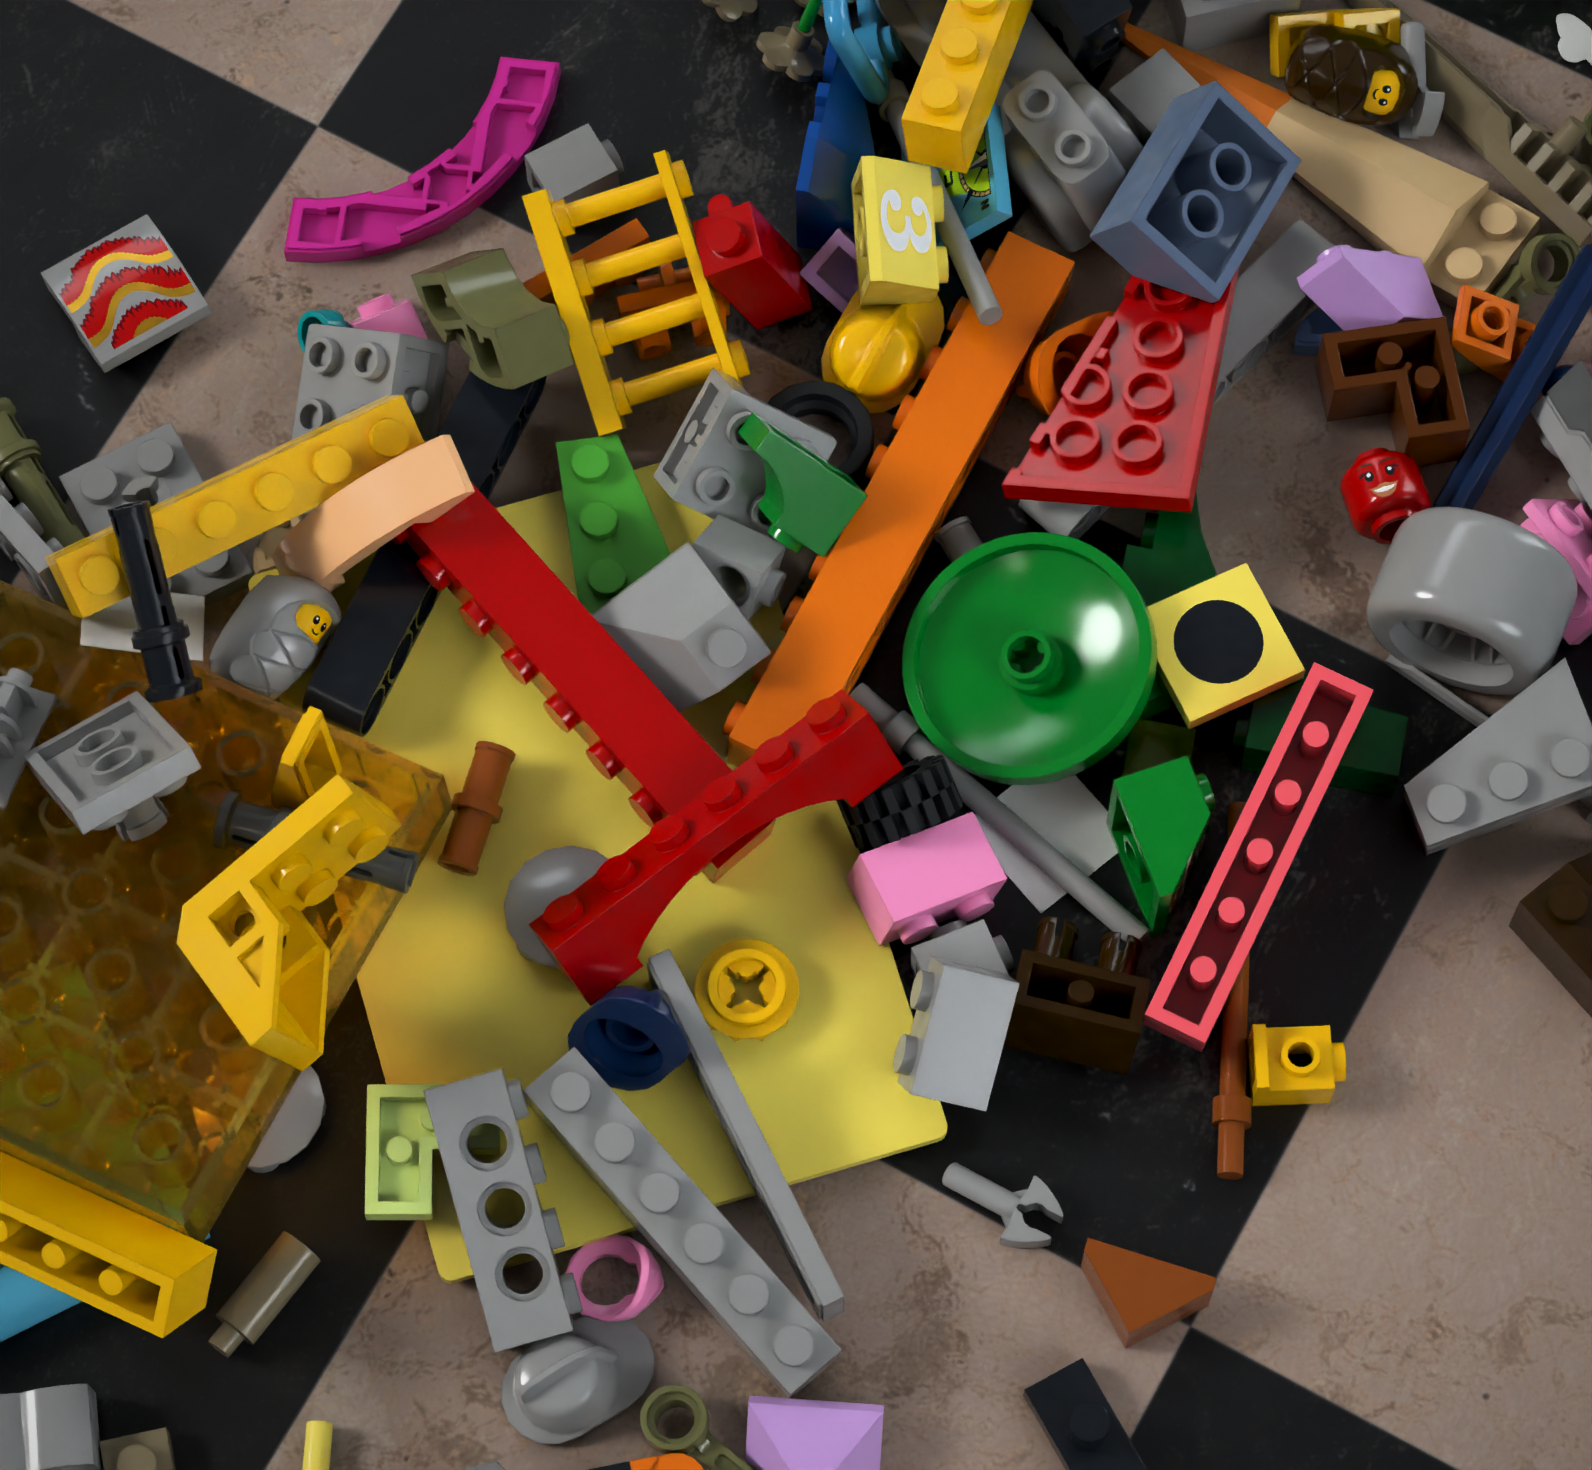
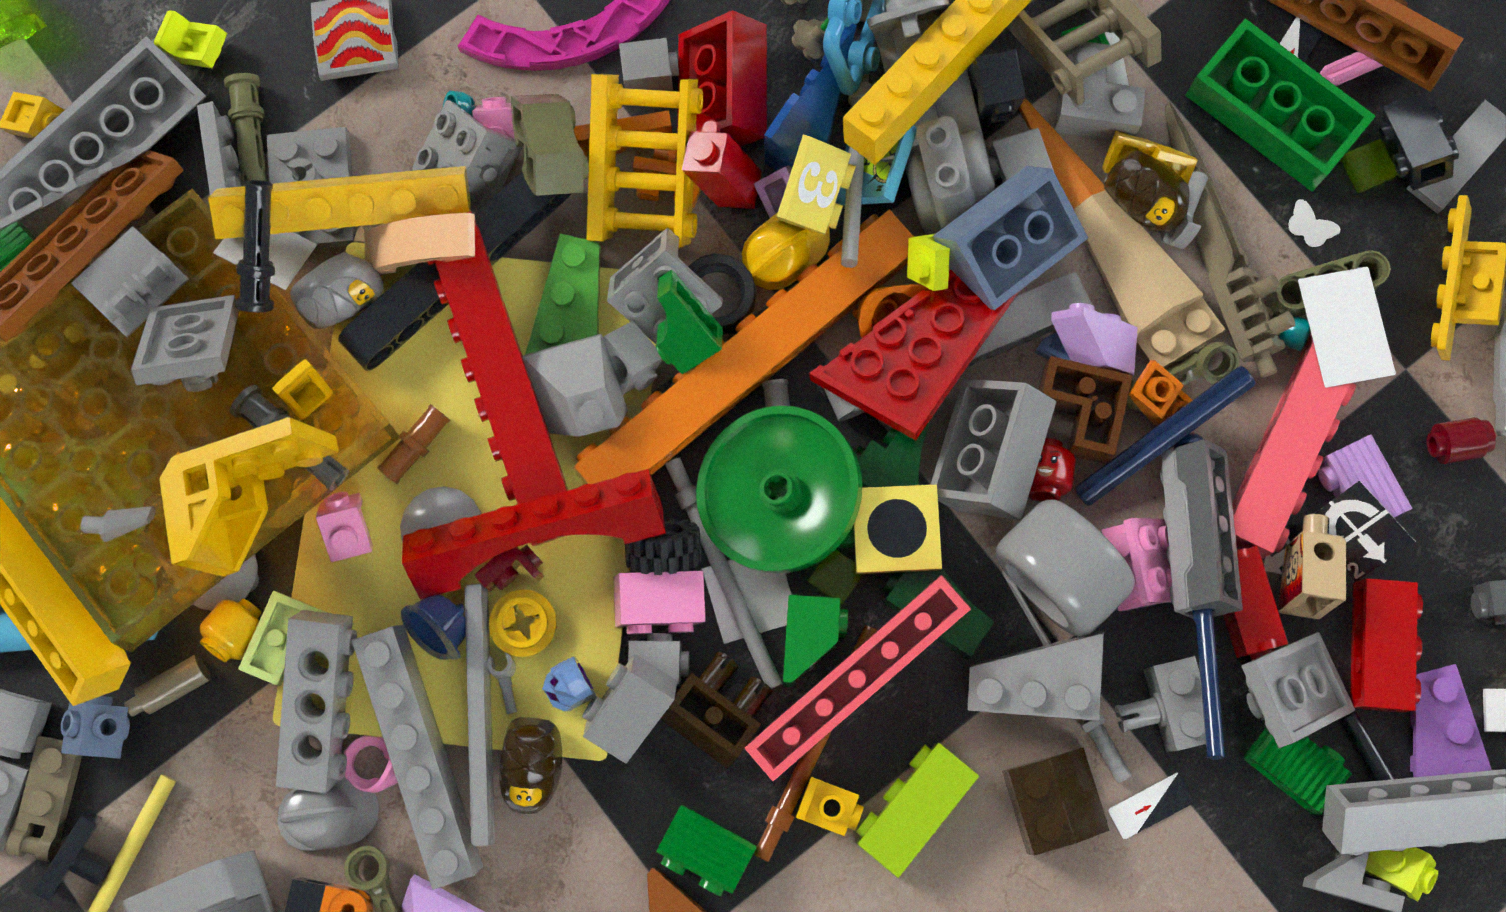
camera: 25 degrees right, 10 degrees up
(114, 1058) = (117, 522): none -> light grey bar
(185, 1389) = (95, 728): none -> sand blue brick
(322, 1174) = (229, 629): none -> yellow head
(427, 960) = (343, 526): none -> bright pink bracket
(684, 923) = (502, 568): none -> dark red bracket
(696, 116) = (731, 70): none -> red slope
(752, 1075) = (505, 682): none -> light grey hand
(844, 1178) = (530, 764): none -> dark brown piece
(854, 1042) = (568, 685): none -> medium blue rock
(1007, 1204) = (621, 816): light grey bar -> none
(1098, 275) = (928, 262): none -> neon yellow bracket
(1149, 1194) = (705, 850): none -> green brick
(1299, 487) = (992, 447): none -> light grey brick
(1414, 1016) = (915, 808): none -> lime brick

